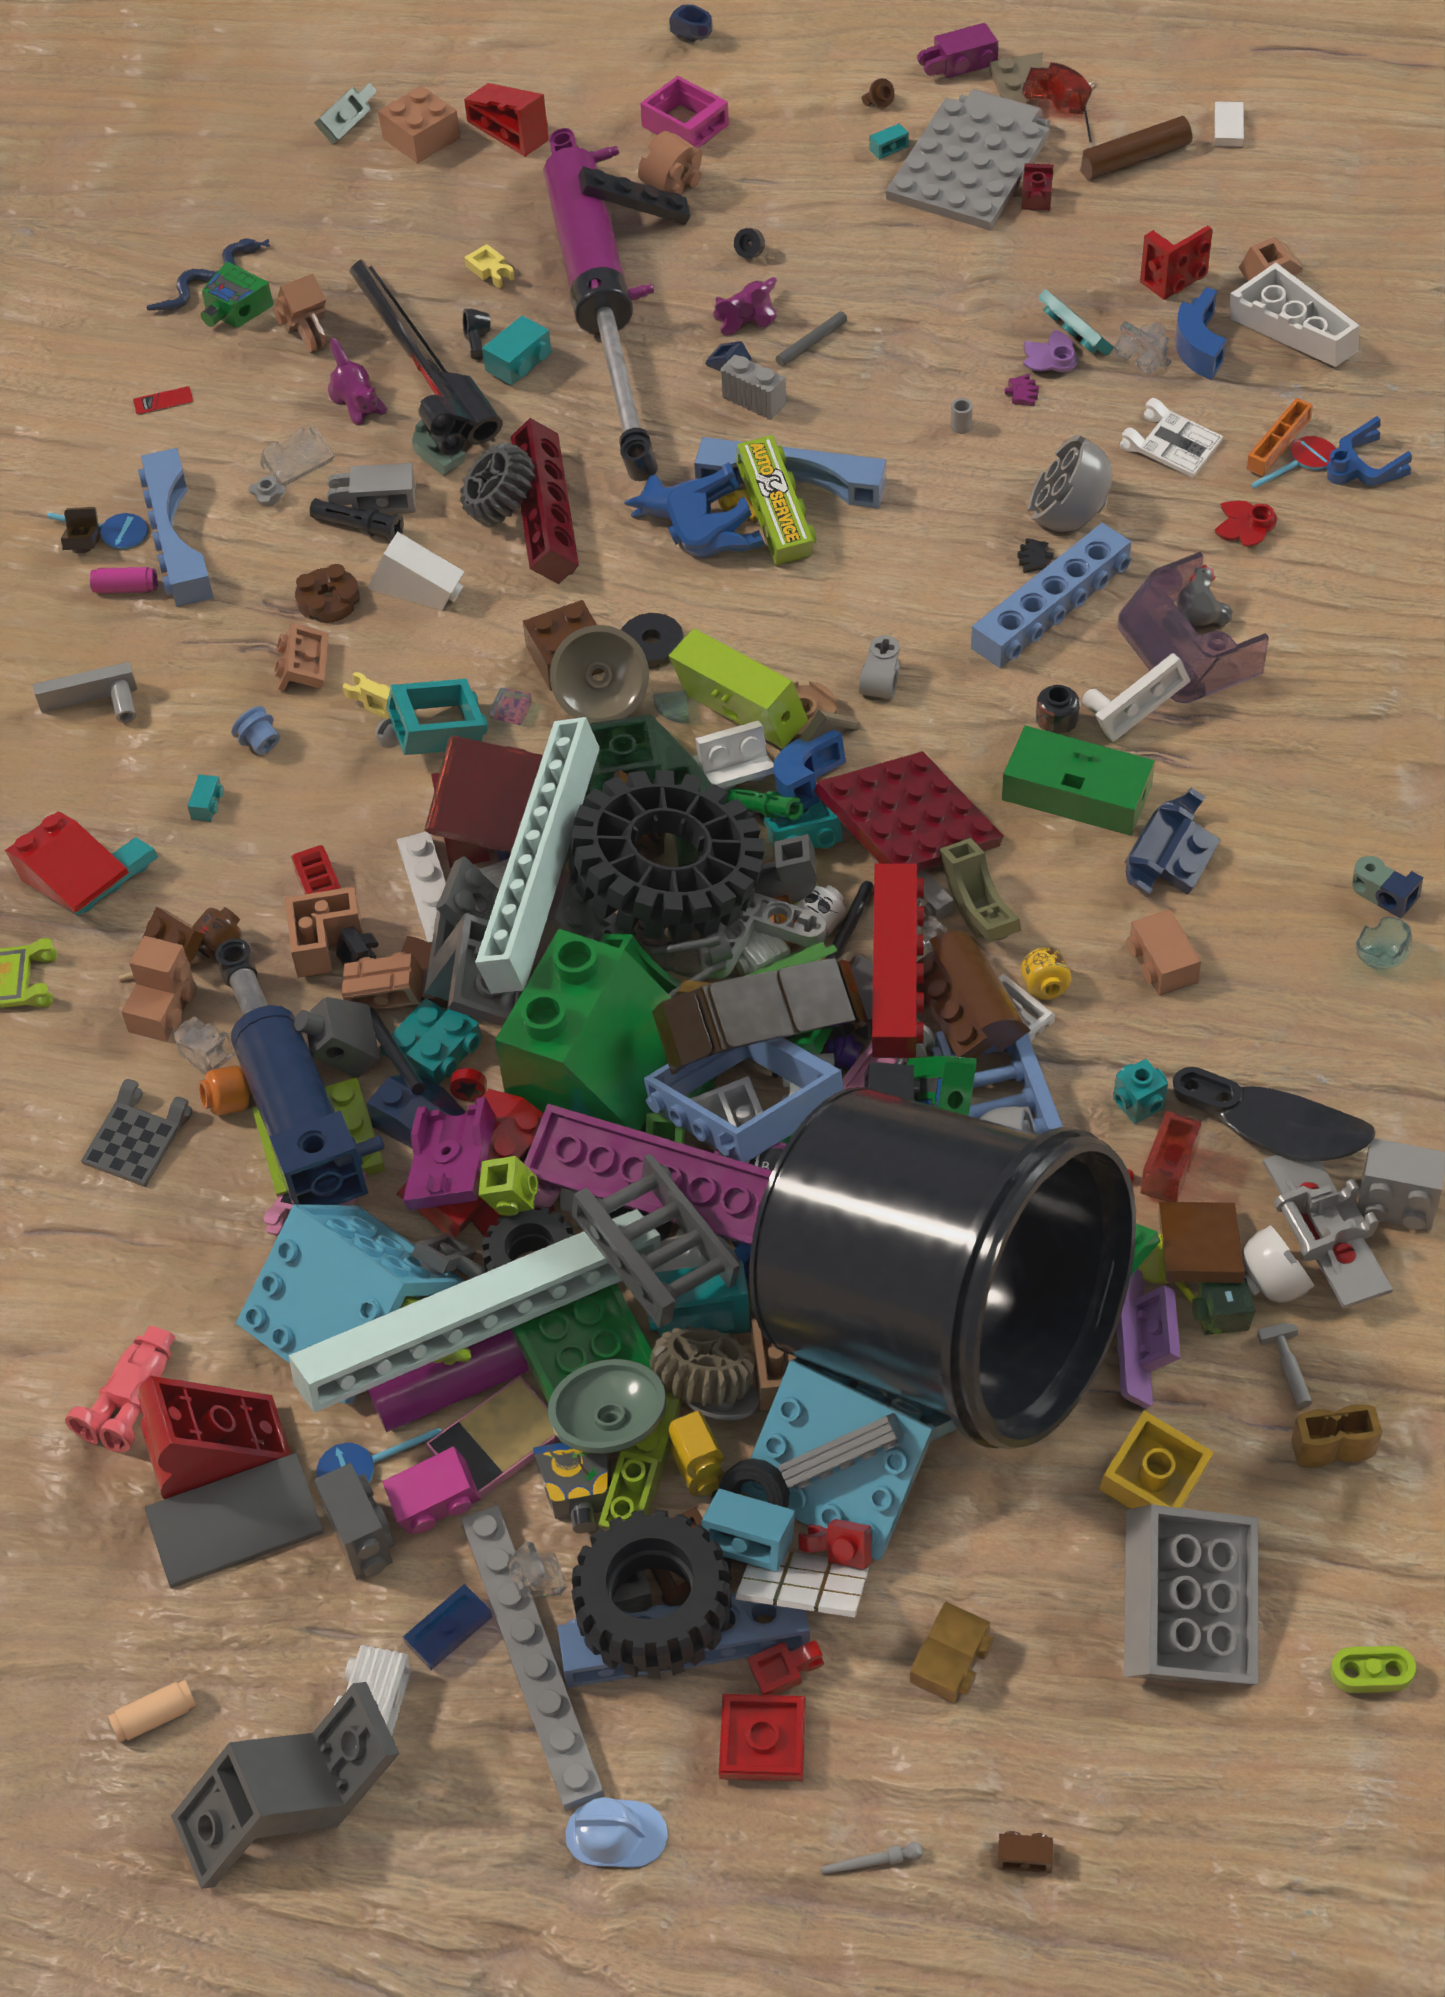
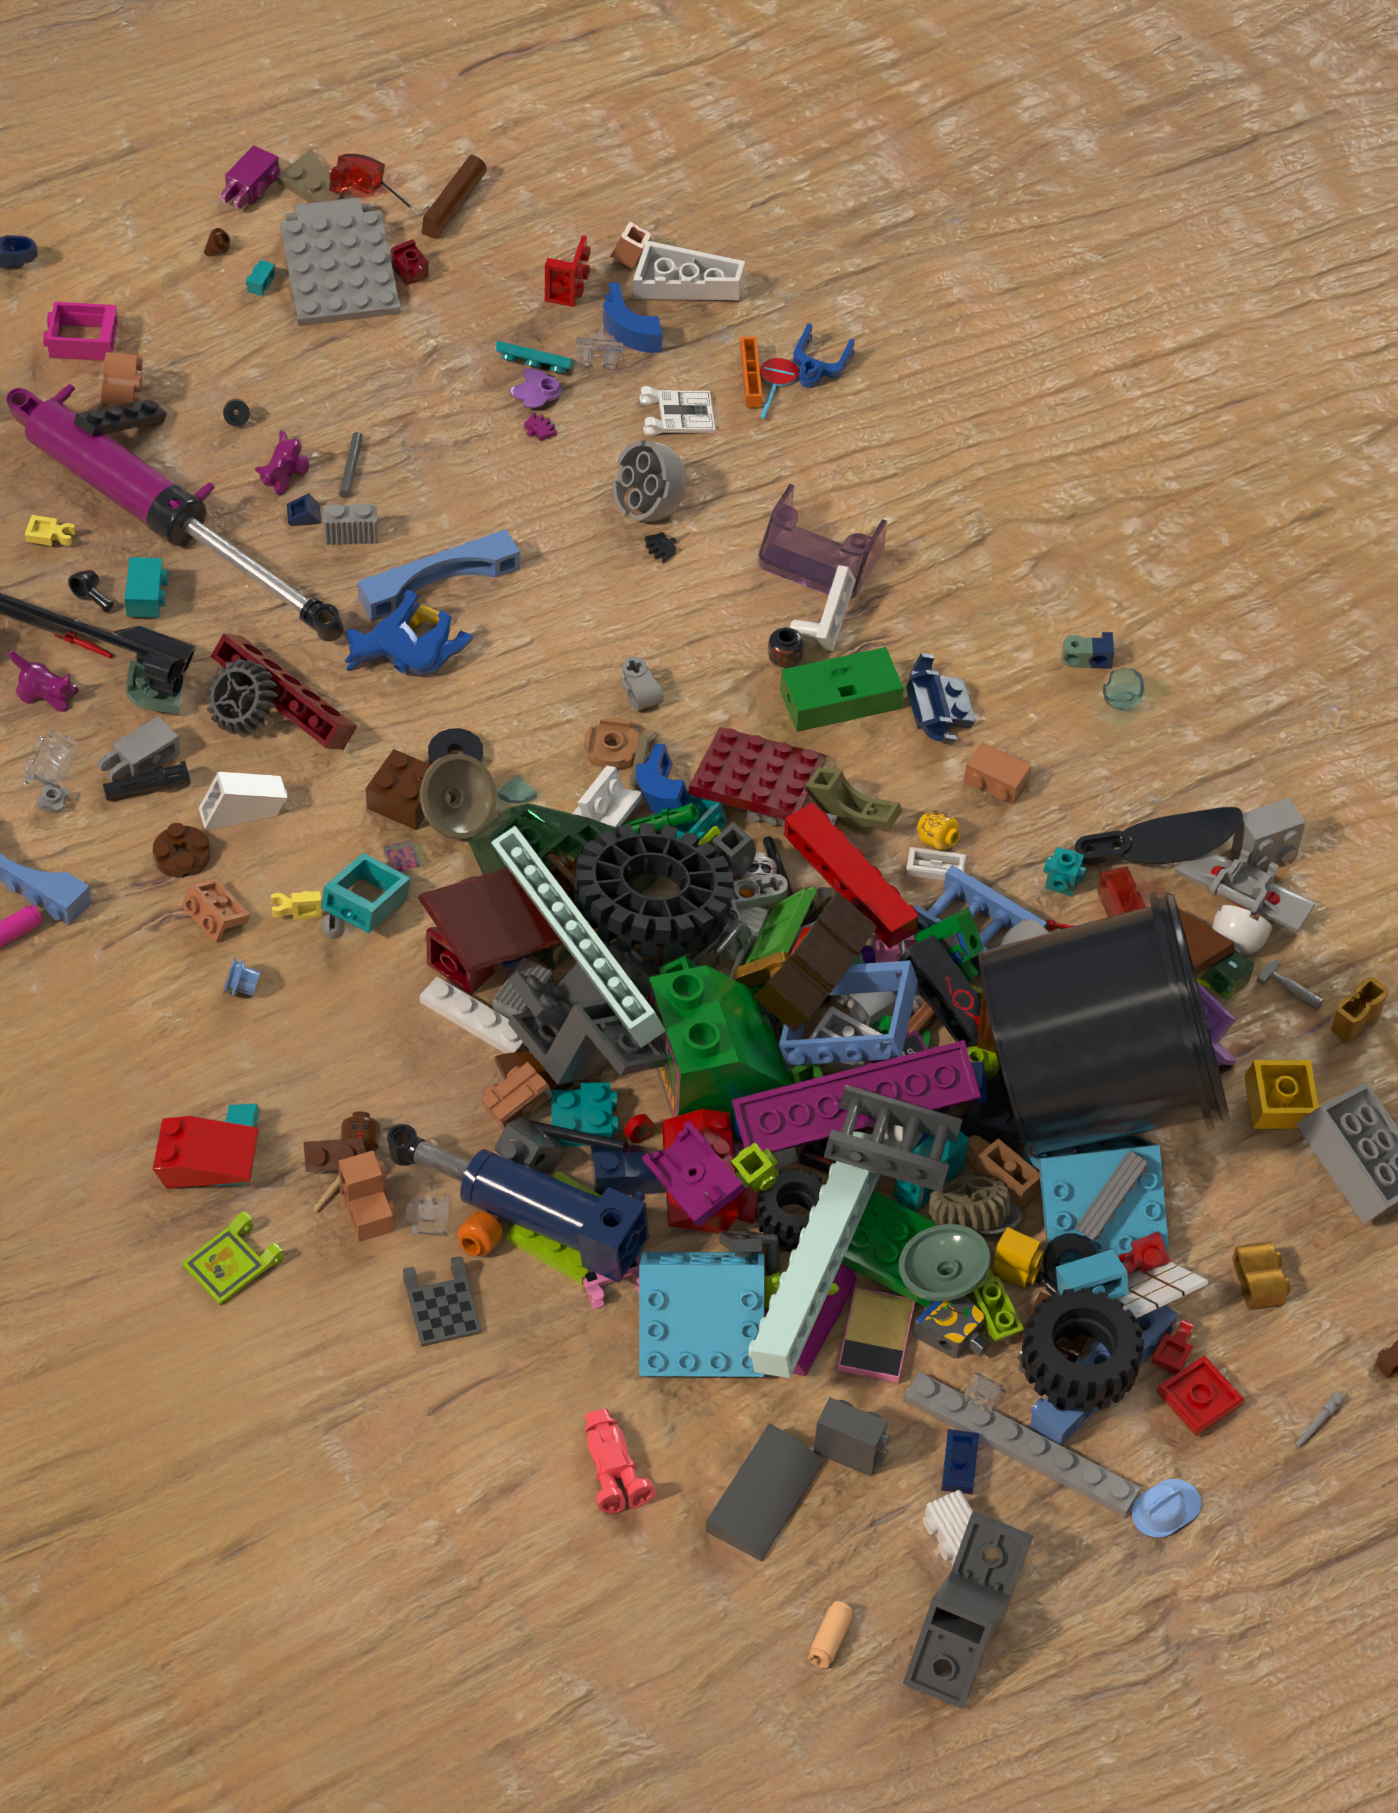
camera: 45 degrees left, 0 degrees up
(88, 686) = (90, 1004): light grey piece -> none
(205, 798) = (247, 1048): teal piece -> none
(206, 1432) = (707, 1452): red brick -> none
(311, 863) = (398, 1050): red slope -> none
(317, 923) = (432, 1088): nougat brick -> none
(355, 946) = (470, 1088): black tile -> none
(360, 1457) = (800, 1414): blue piece -> none
(431, 1491) = (878, 1385): dark pink brick -> none
(738, 687) = (567, 750): lime brick -> none
(775, 500) = (448, 592): lime brick -> none
(961, 415) = (519, 468): light grey hinge -> none
(968, 996) = (917, 874): reddish brown brick -> none
(1051, 595) = (704, 569): medium blue brick -> none
(1199, 603) = (810, 518): dark grey animal -> none
(1229, 124) = (498, 144): white tile -> none
(1246, 522) = (782, 446): red plate -> none

